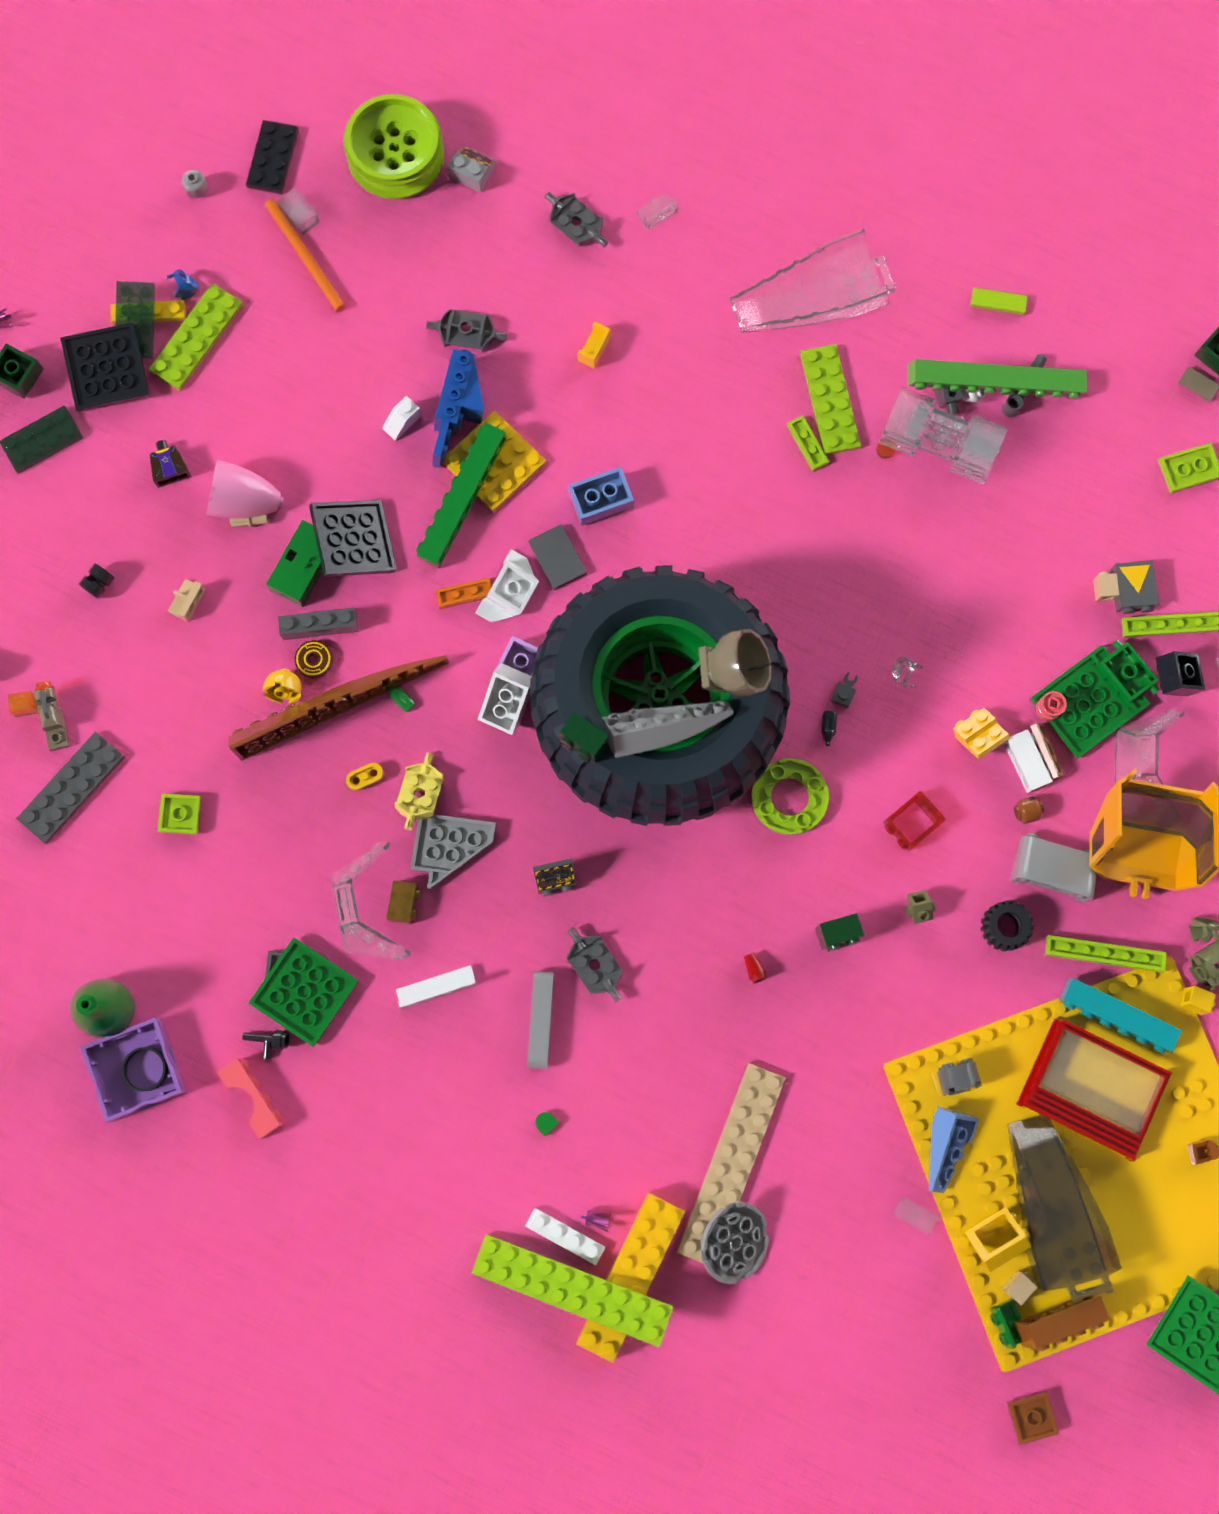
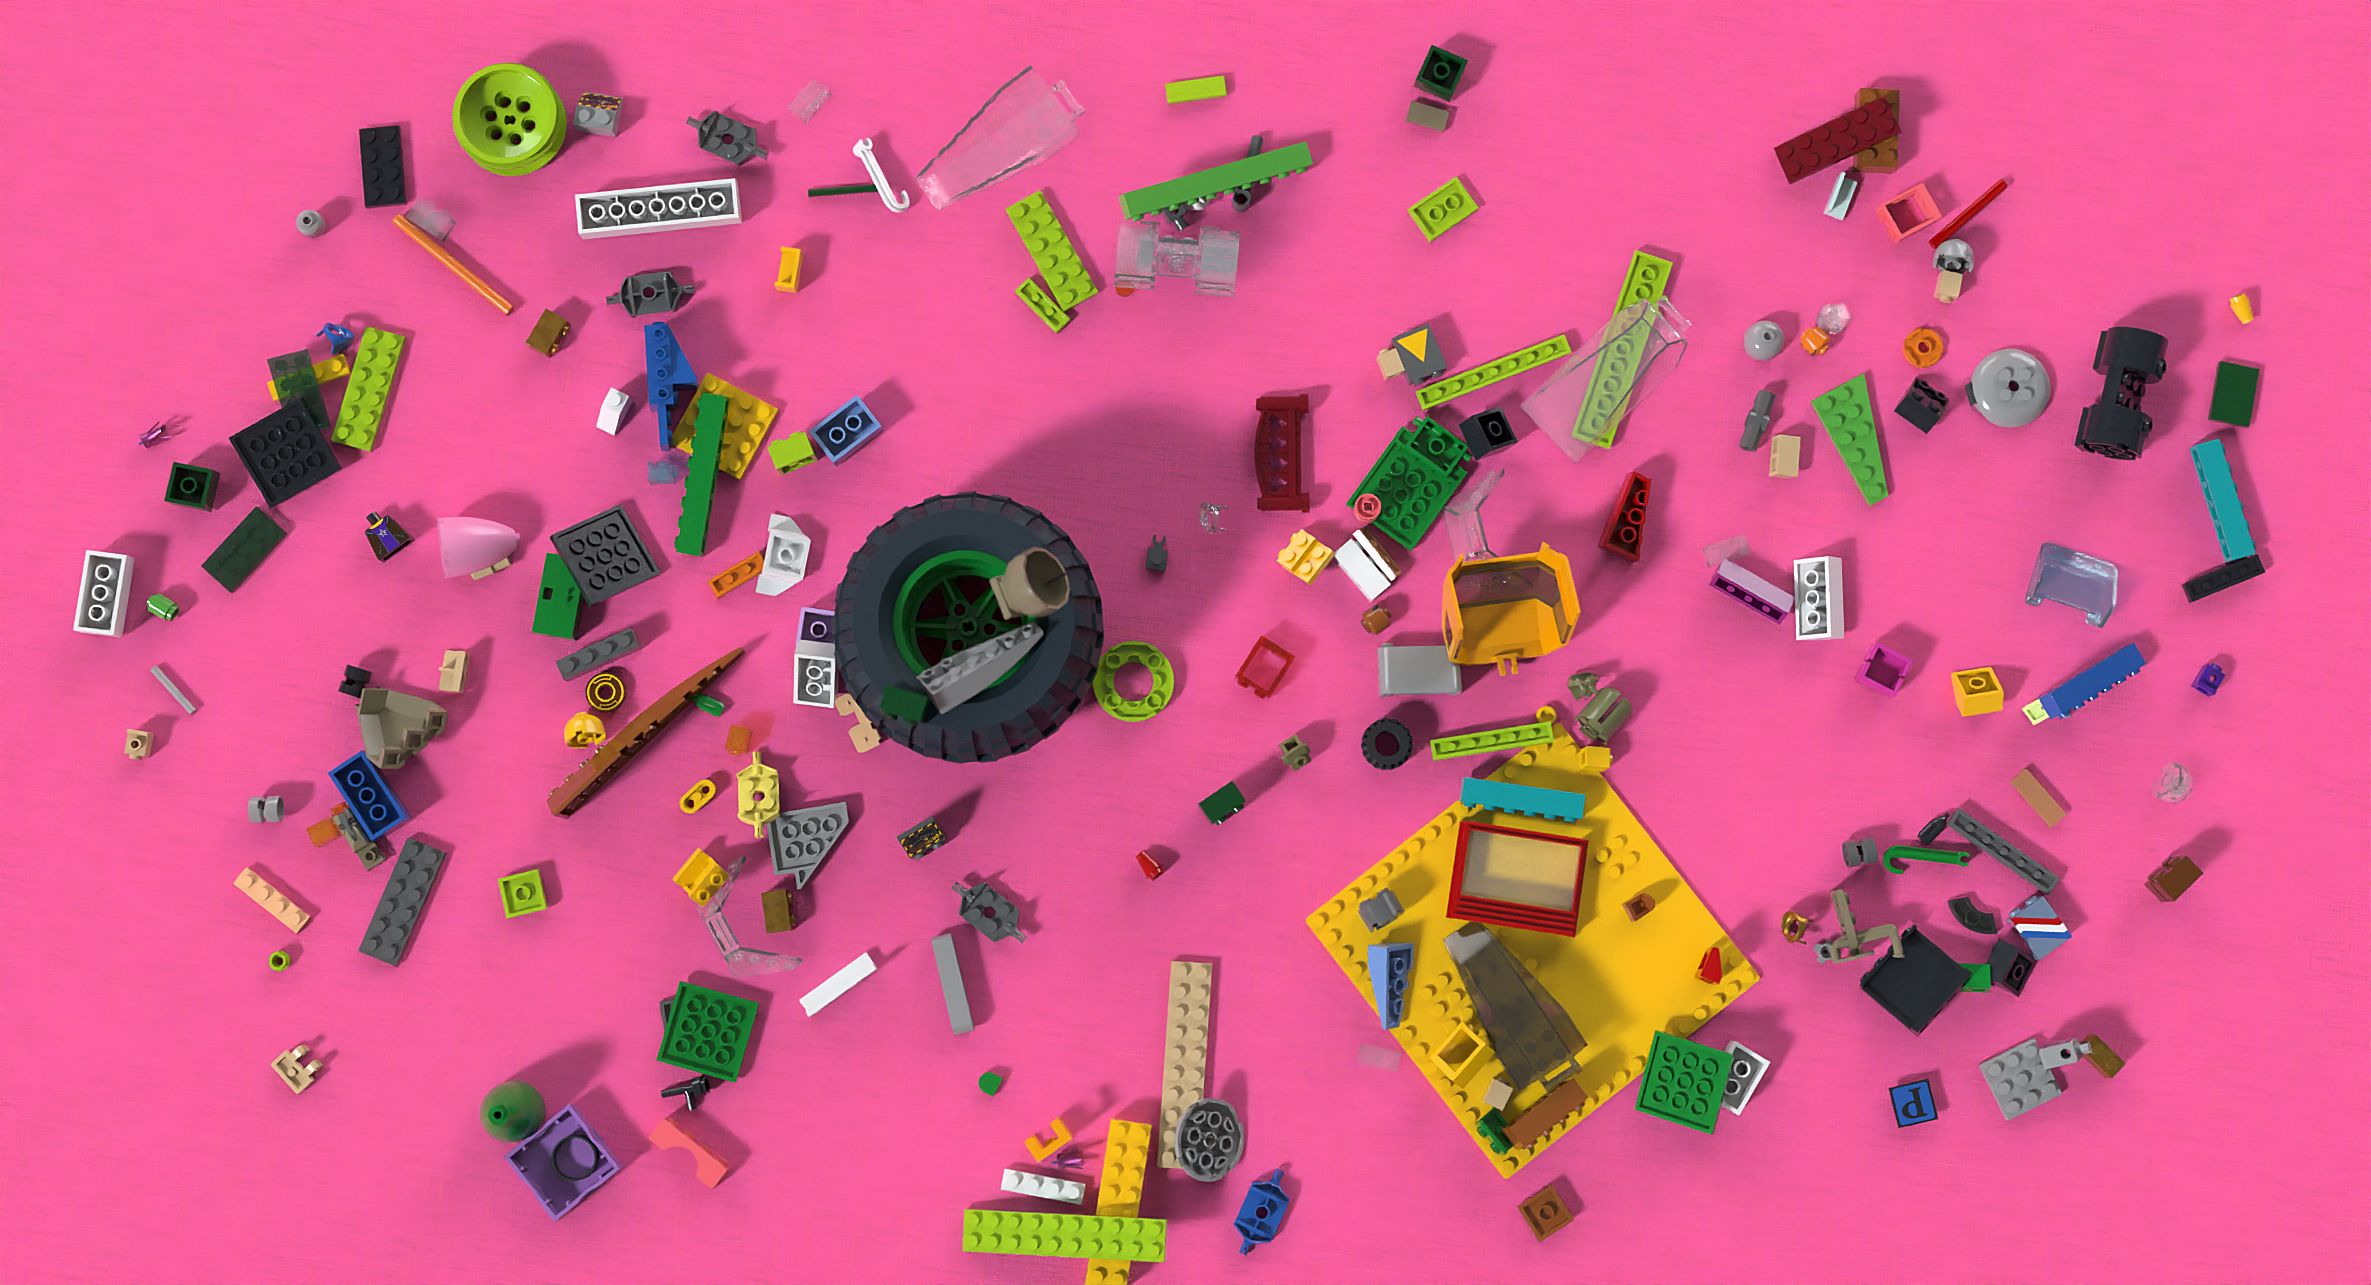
camera: 20 degrees left, 5 degrees up
(74, 684) = (369, 796): none -> blue brick
(119, 629) = (397, 725): none -> dark tan panel
(343, 848) = (701, 877): none -> yellow panel
(367, 336) = (548, 333): none -> pearl gold brick
(417, 738) = (738, 740): none -> brick
(426, 484) = (662, 473): none -> clear light blue brick
(497, 259) = (658, 208): none -> white brick
(530, 768) = (863, 734): none -> light nougat piece
(547, 500) = (792, 453): none -> lime brick
(557, 557) = (821, 507): dark grey tile -> none
(586, 1199) = (1052, 1144): none -> light orange panel
(666, 294) = (842, 190): none -> dark green bar
(691, 265) = (862, 150): none -> white piece
(765, 1311) = (1267, 1195): none -> blue plate
(829, 723) = (1151, 596): black piece -> none
(982, 675) = (1289, 496): none -> dark red piece
(1161, 944) = (1546, 714): none -> yellow tile

